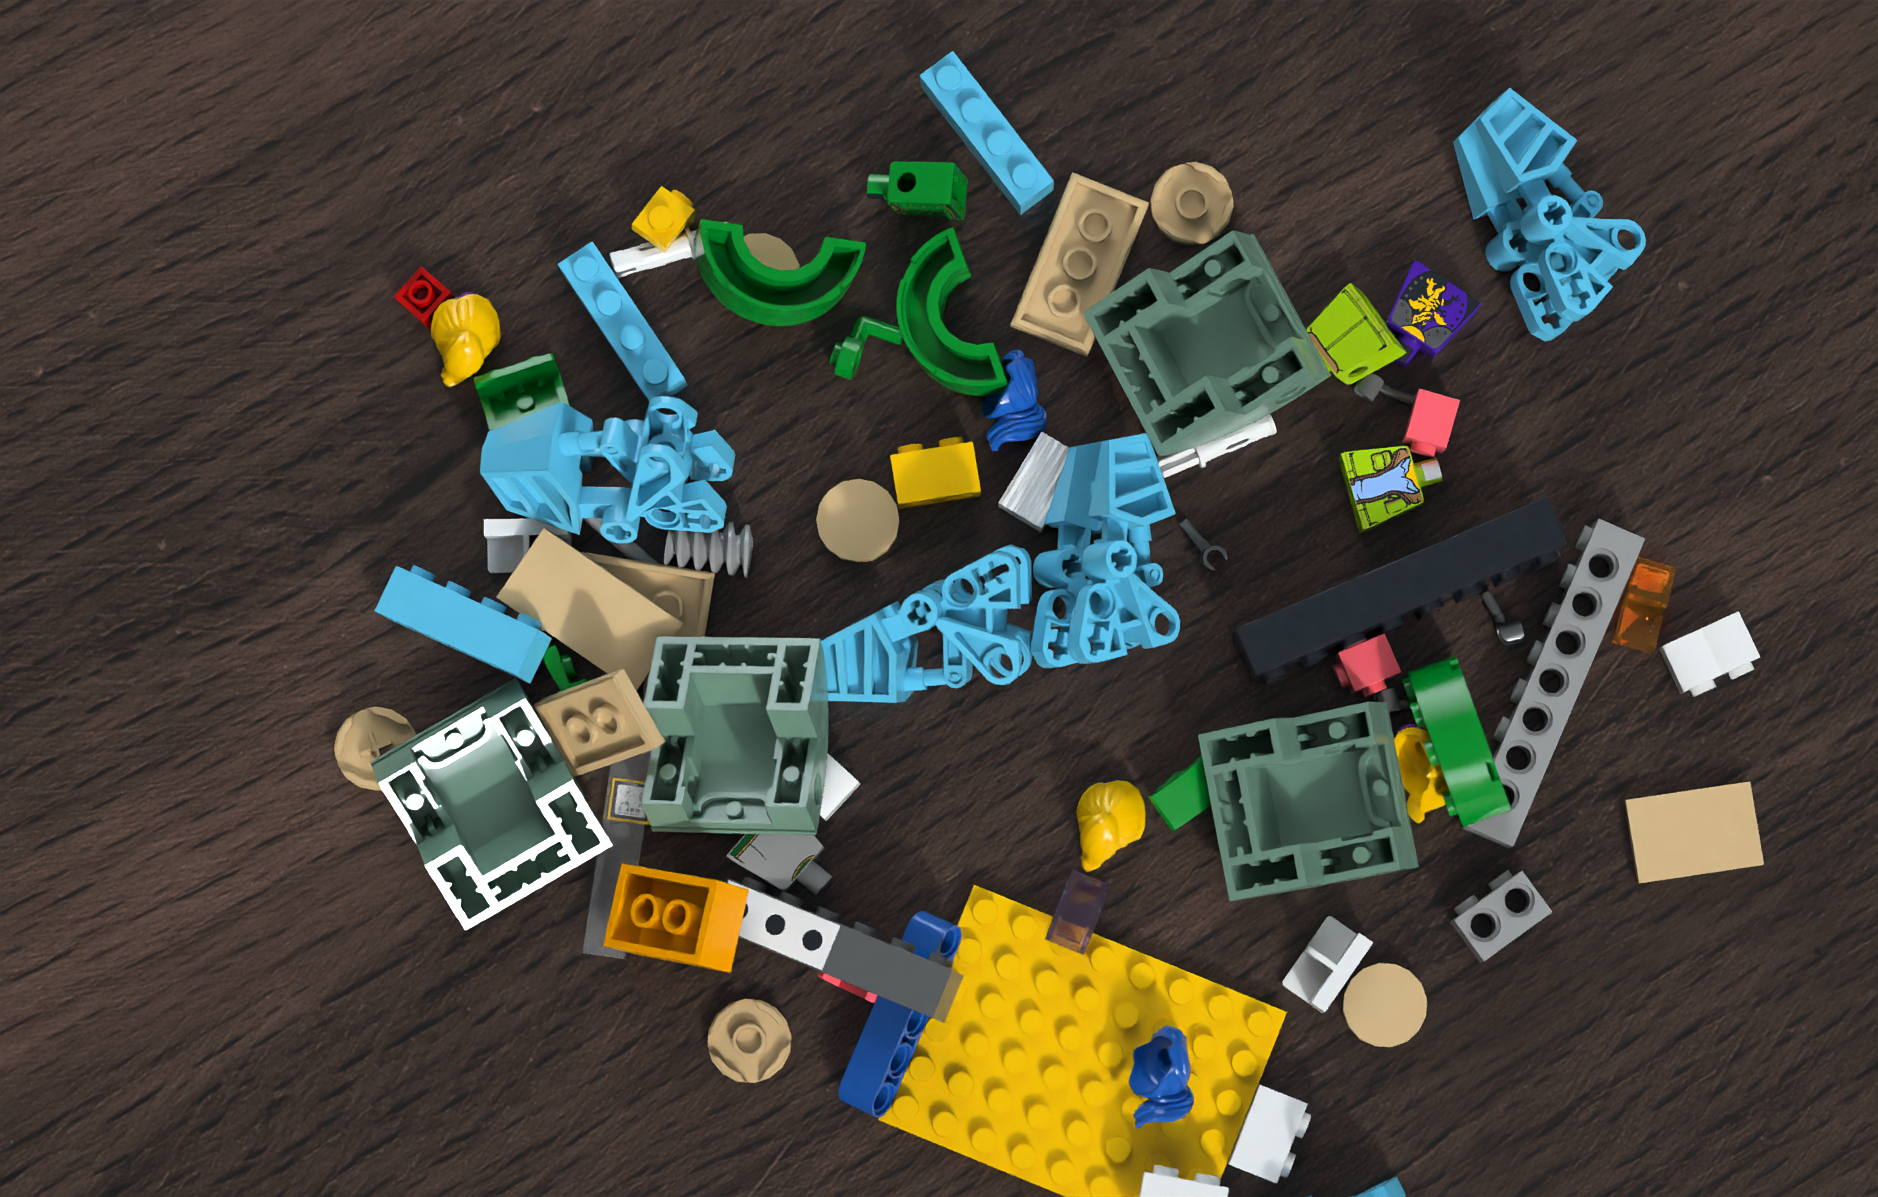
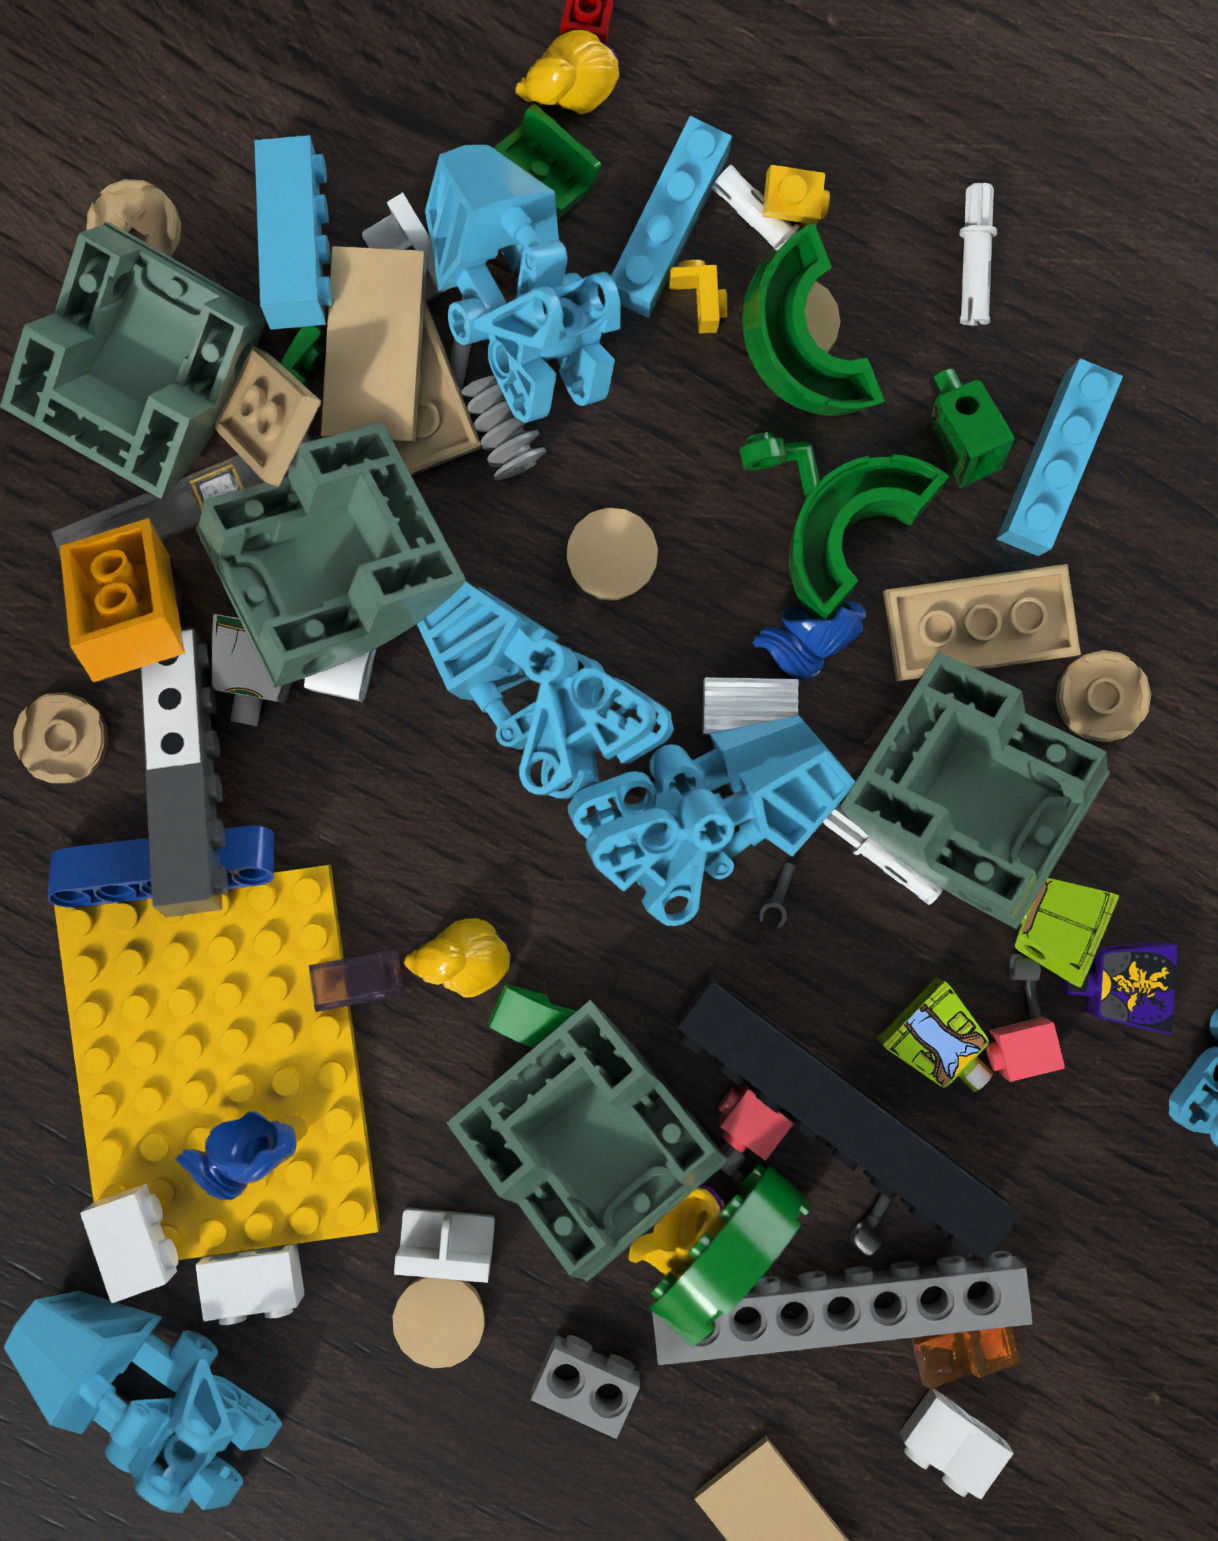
camera: 60 degrees right, 5 degrees up
(704, 329) = (710, 299): none -> yellow bracket
(790, 103) = (977, 254): none -> white axle
(935, 473) = (699, 600): yellow brick -> none

